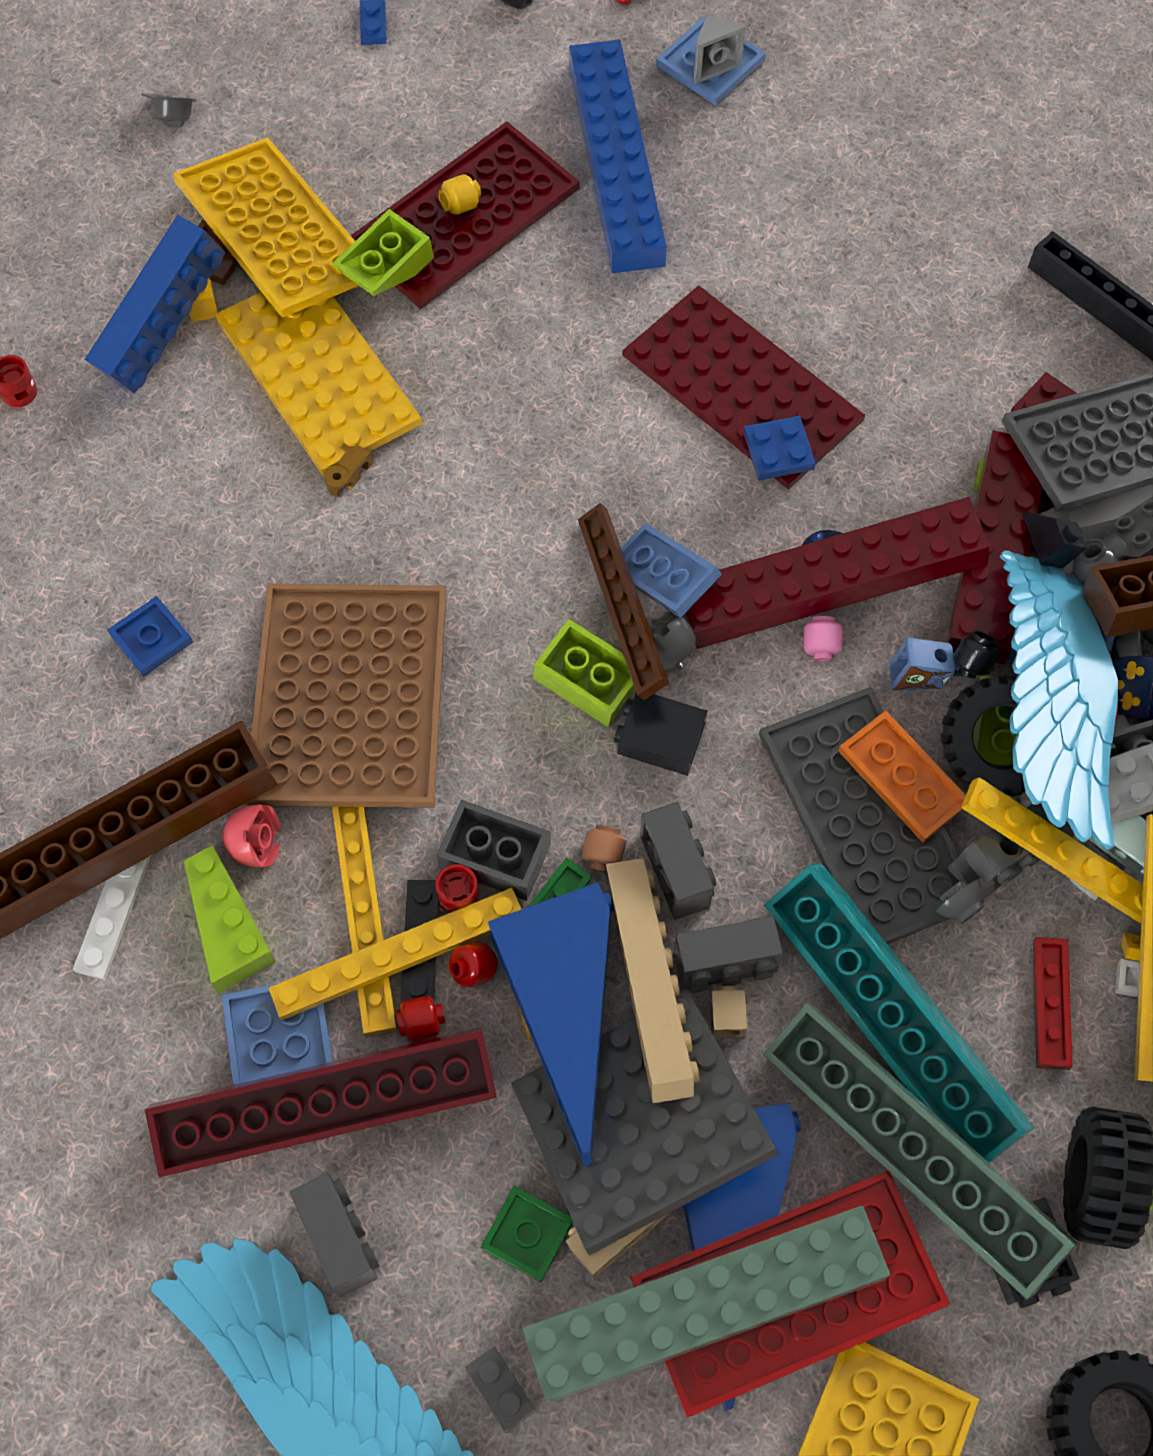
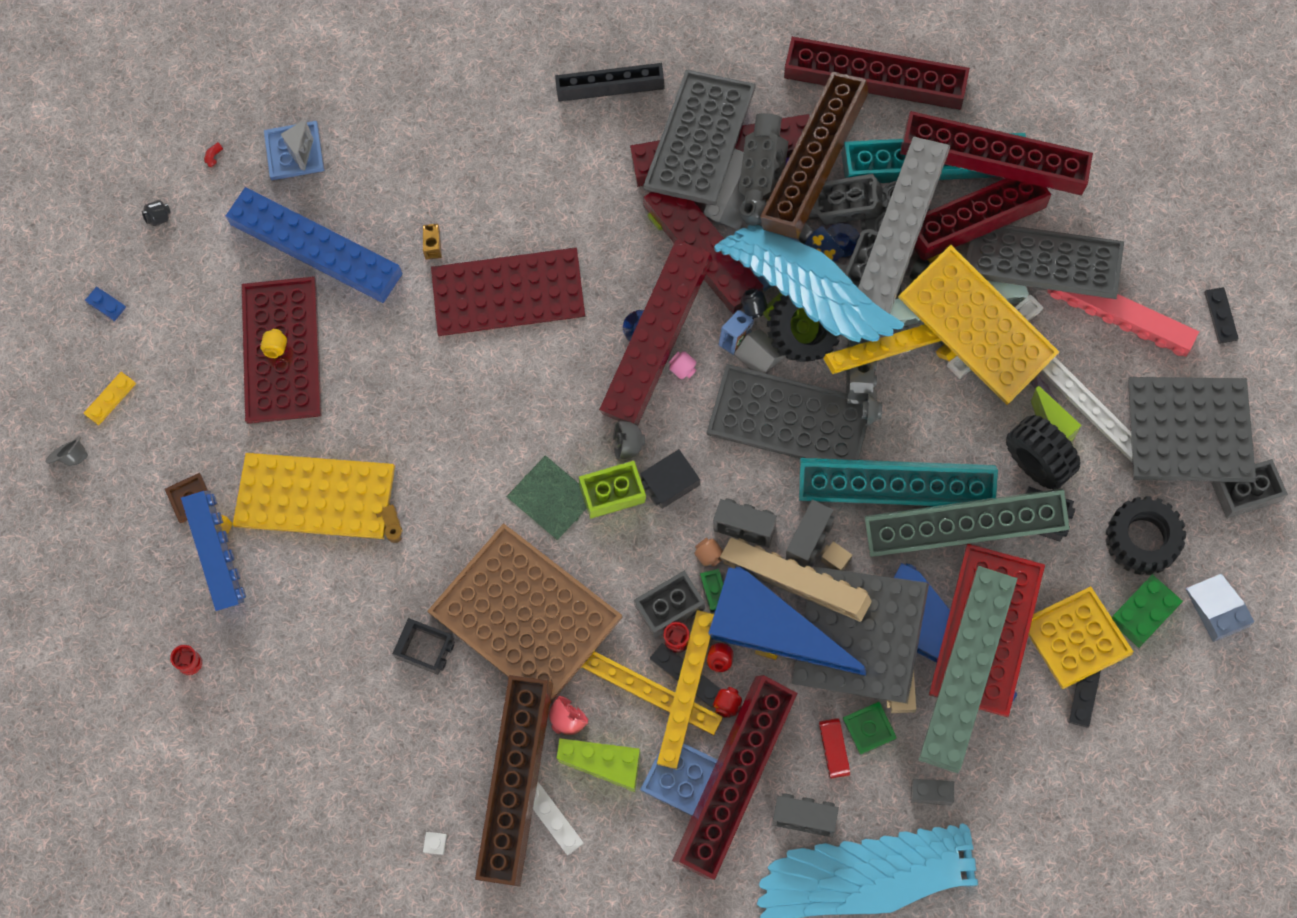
camera: 45 degrees left, 5 degrees up
(150, 636) = (407, 692): blue plate -> none
(211, 587) = (406, 638): none -> black window
(267, 101) = (109, 398): none -> yellow plate
(270, 224) = (205, 453): yellow plate -> none
(385, 254) = (281, 409): lime slope -> none
(464, 1203) = (834, 748): none -> red beam
(521, 614) = (549, 497): none -> clear green piece
(623, 602) = (588, 443): reddish brown plate -> none
(667, 570) = (587, 411): medium blue plate -> none
(729, 263) = (431, 241): none -> pearl gold leg
(779, 448) = (562, 303): blue plate -> none
(903, 776) = (786, 385): orange plate -> none
(921, 710) = (758, 352): none -> light grey slope
(1052, 1003) = (943, 410): red plate -> none
(1054, 539) = (726, 218): black slope -> none

